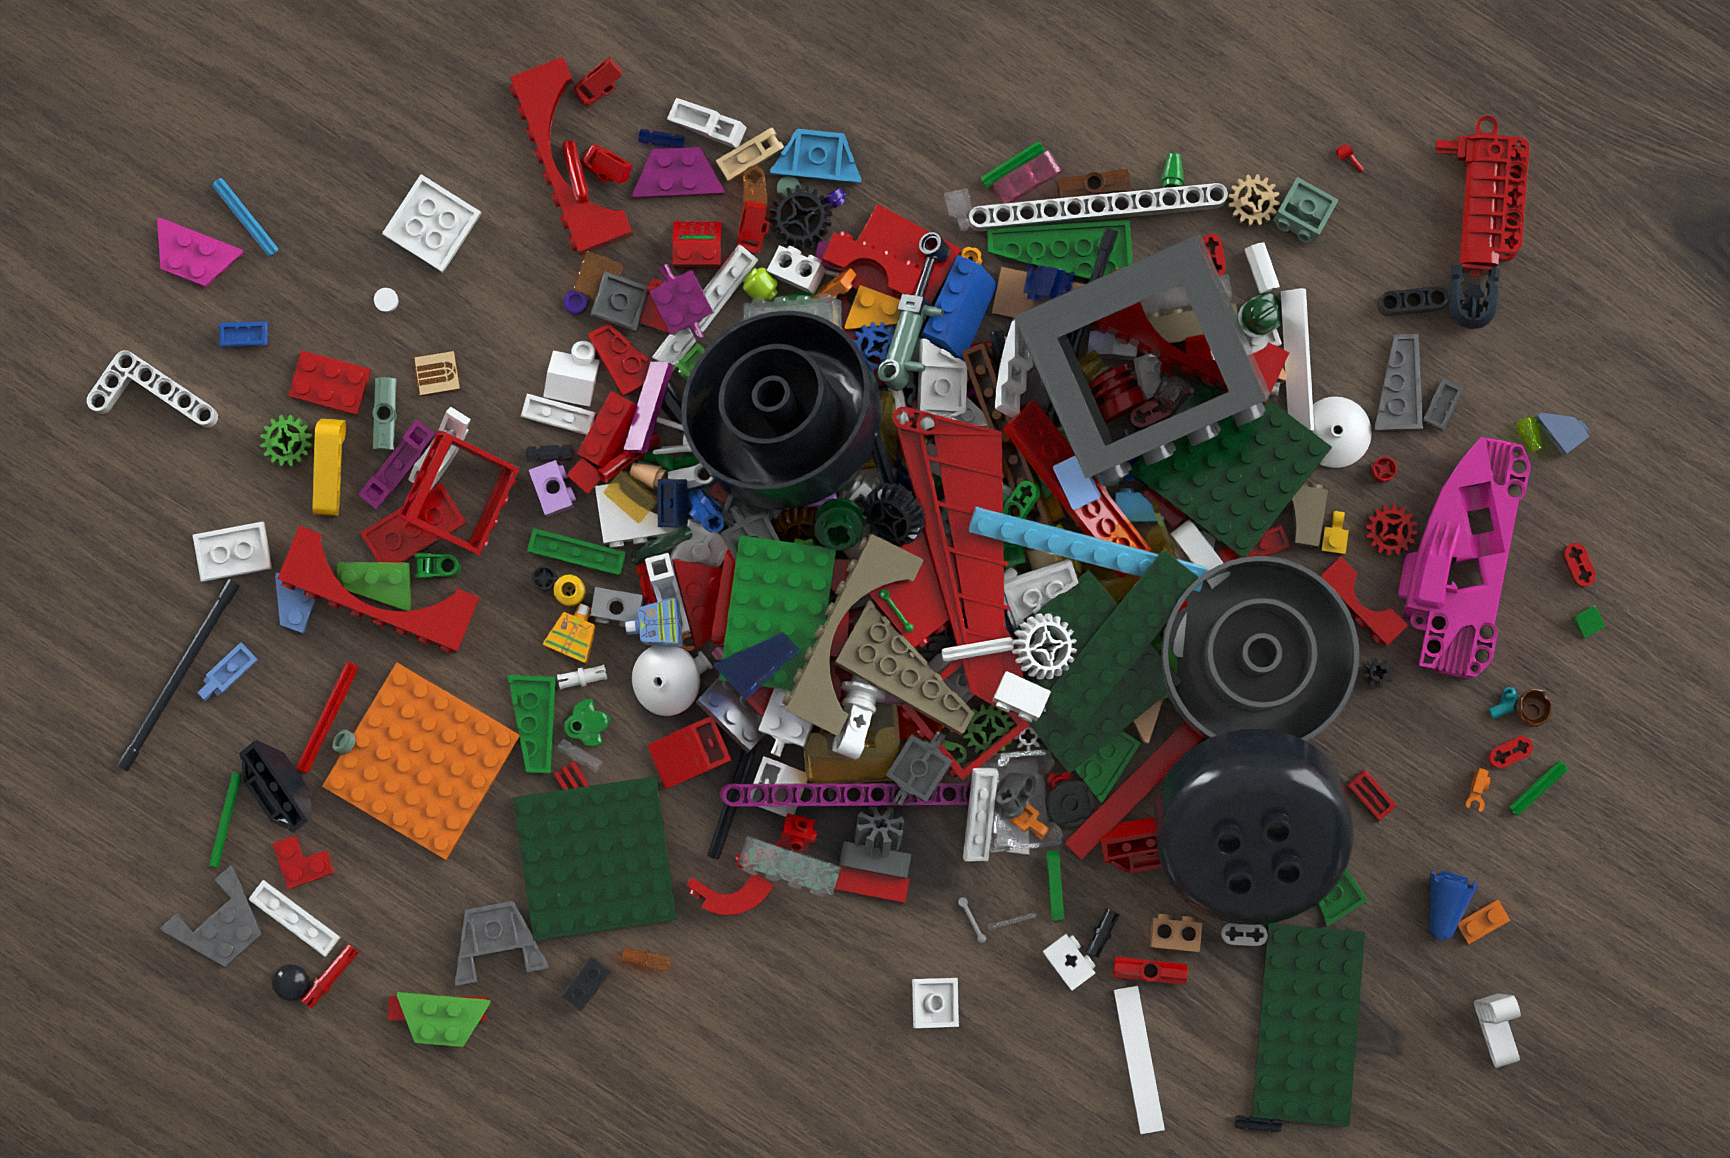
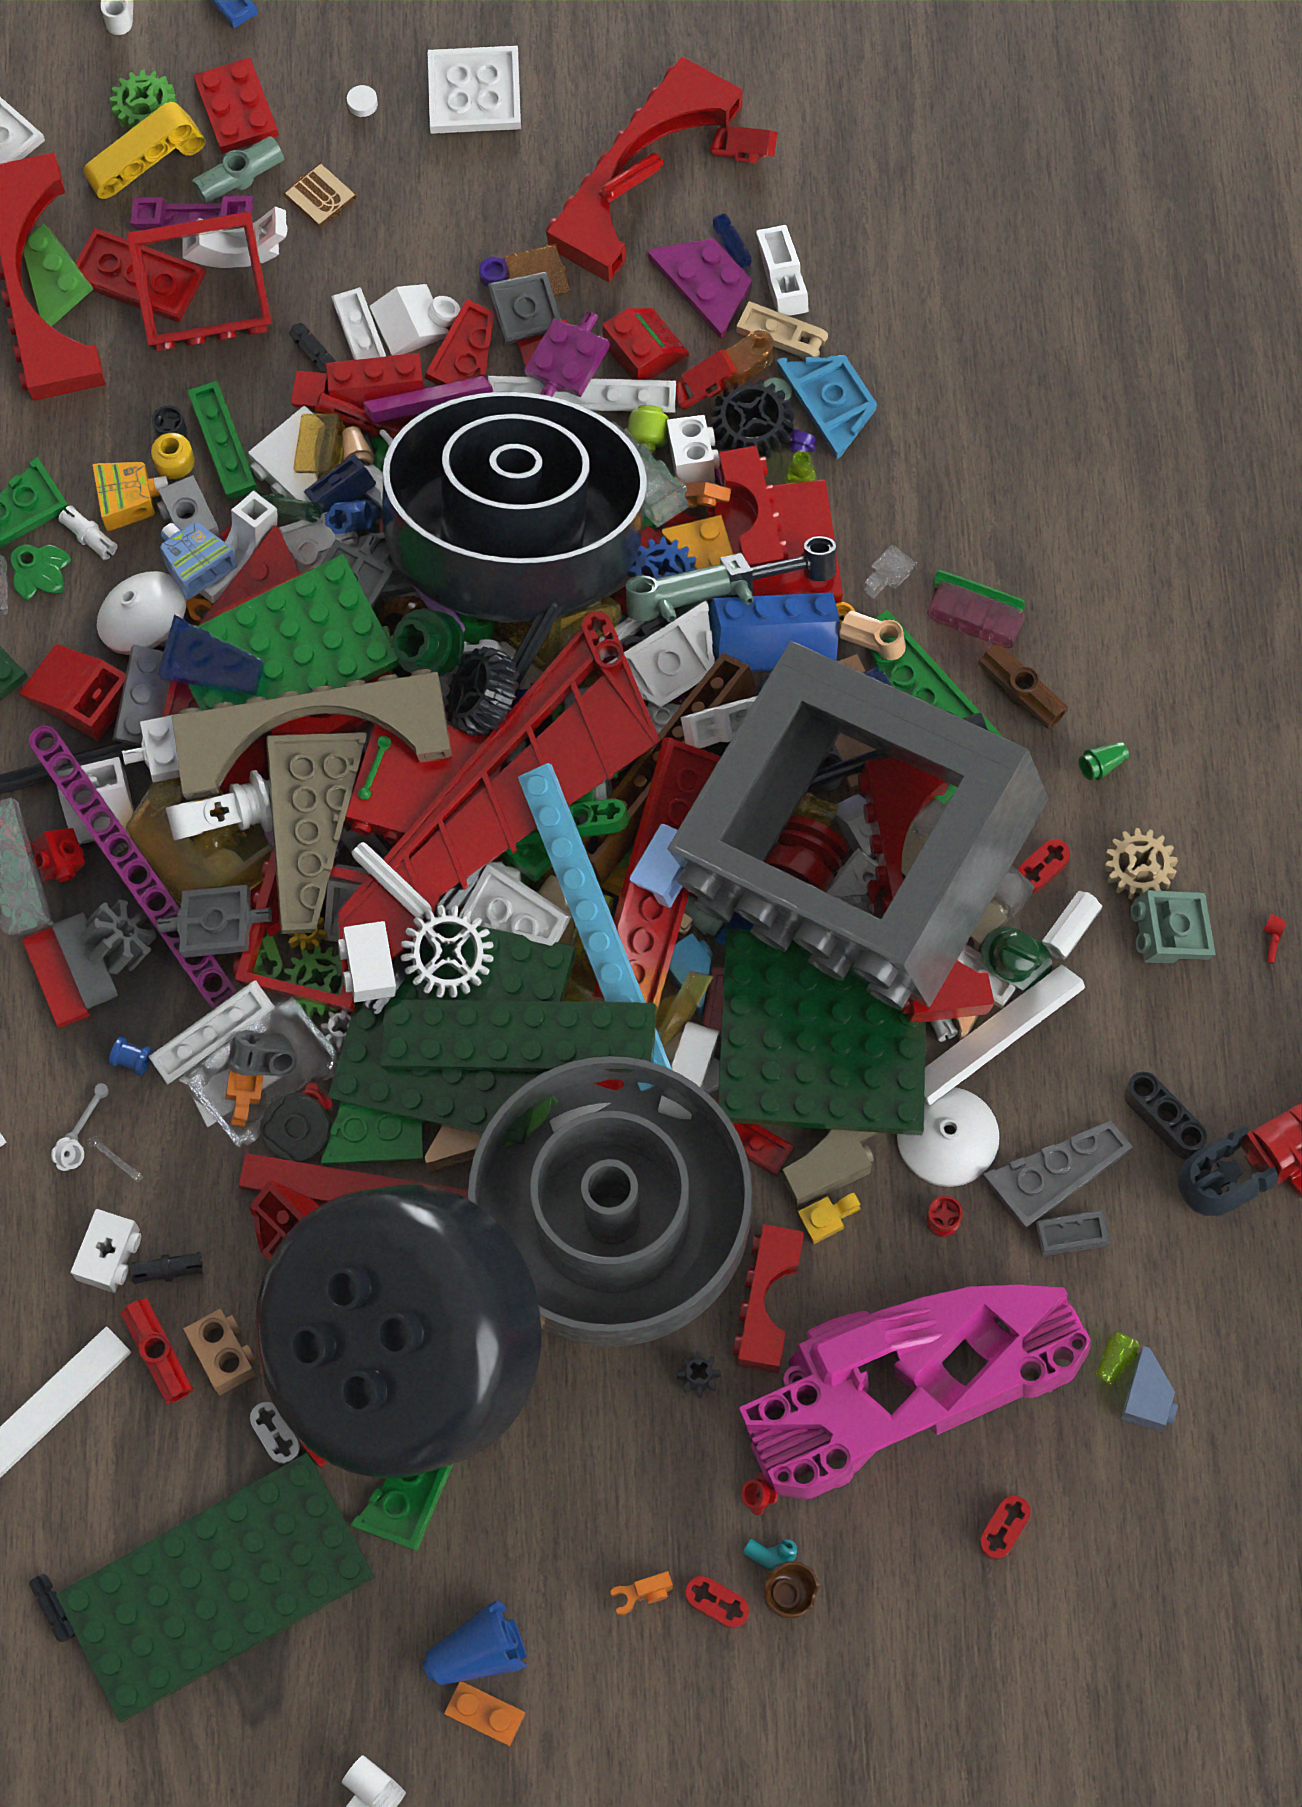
camera: 55 degrees right, 15 degrees down
(432, 566) = (108, 316): green piece -> none
(542, 477) = (274, 356): lavender brick -> none
(606, 165) = (662, 206): red piece -> none
(857, 219) = (800, 468): none -> clear neon green cone
(956, 871) = (130, 1056): none -> blue bush
(992, 946) = (74, 1155): none -> white plate
(999, 252) = (871, 634): none -> light nougat piece
(1055, 885) = (187, 1176): green beam -> none
(1107, 200) = (1005, 721): white beam -> none
(1357, 780) = (540, 1500): red tile -> none
(1398, 538) = (867, 1270): red gear -> none
(1467, 693) = (751, 1497): none -> red plate
(1538, 788) = (697, 1667): green axle -> none
(1588, 621) = (945, 1587): green slope -> none

